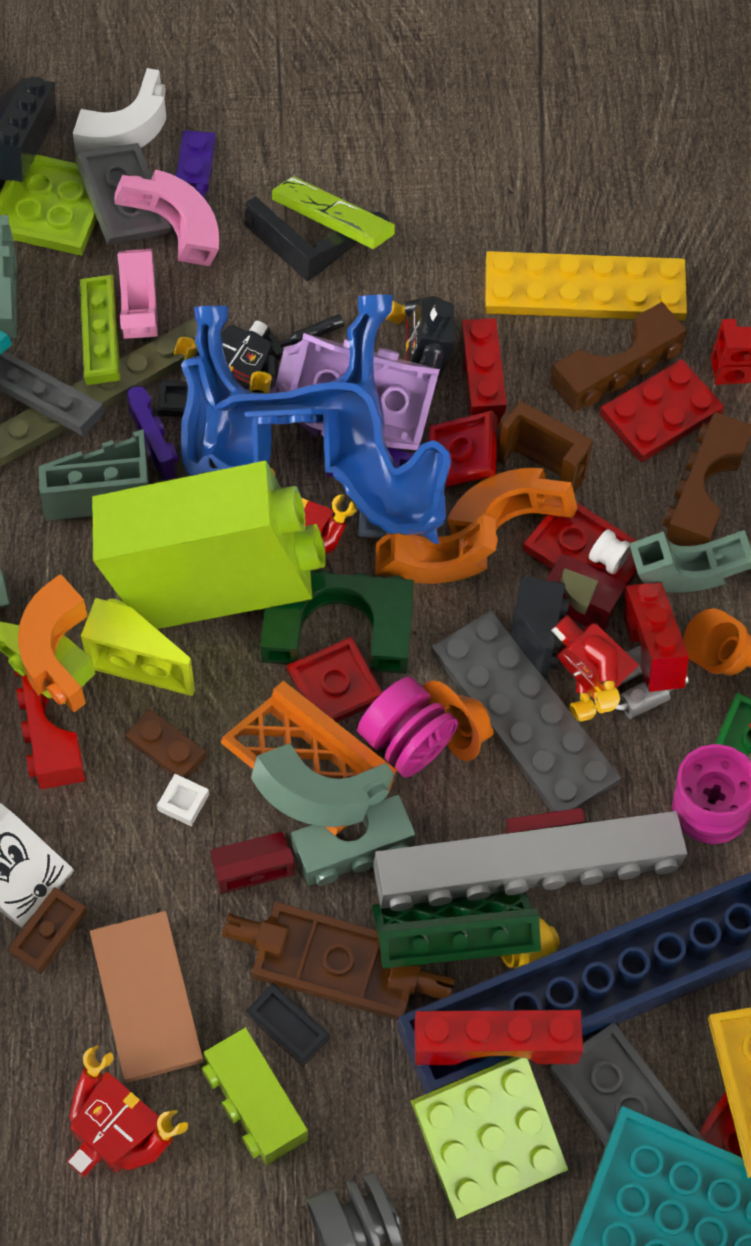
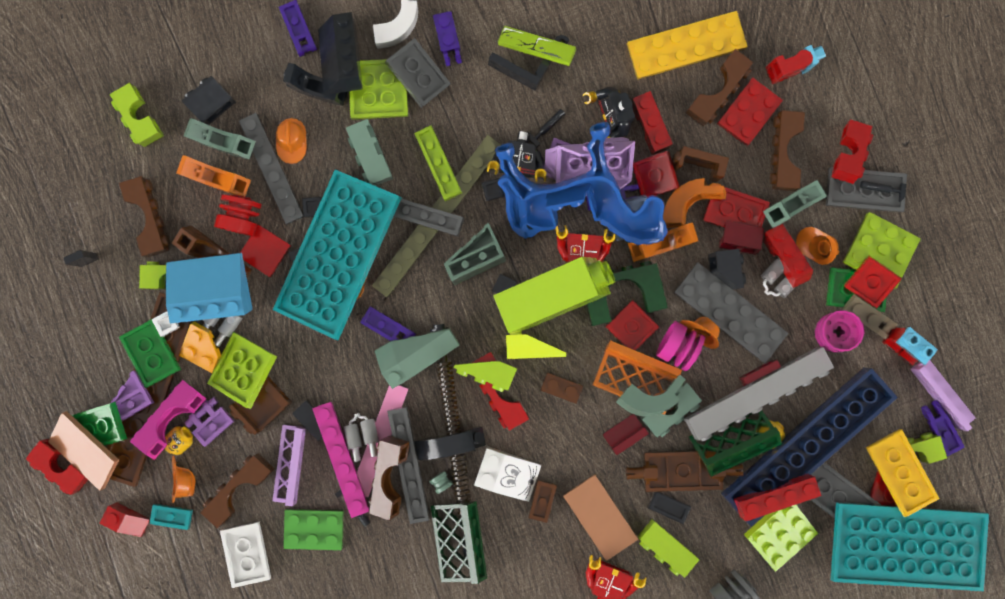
camera: 15 degrees left, 25 degrees up
(44, 622) = (489, 372): orange arch -> none
(138, 294) = (451, 136): bright pink arch -> none
(162, 453) = (489, 216): dark purple hinge -> none
(181, 207) = (457, 73): bright pink arch -> none
(183, 800) = (581, 415): white plate -> none
(578, 589) = (743, 243): olive tile -> none
(596, 665) = (767, 287): red torso -> none
(610, 551) = (752, 214): white wheel -> none

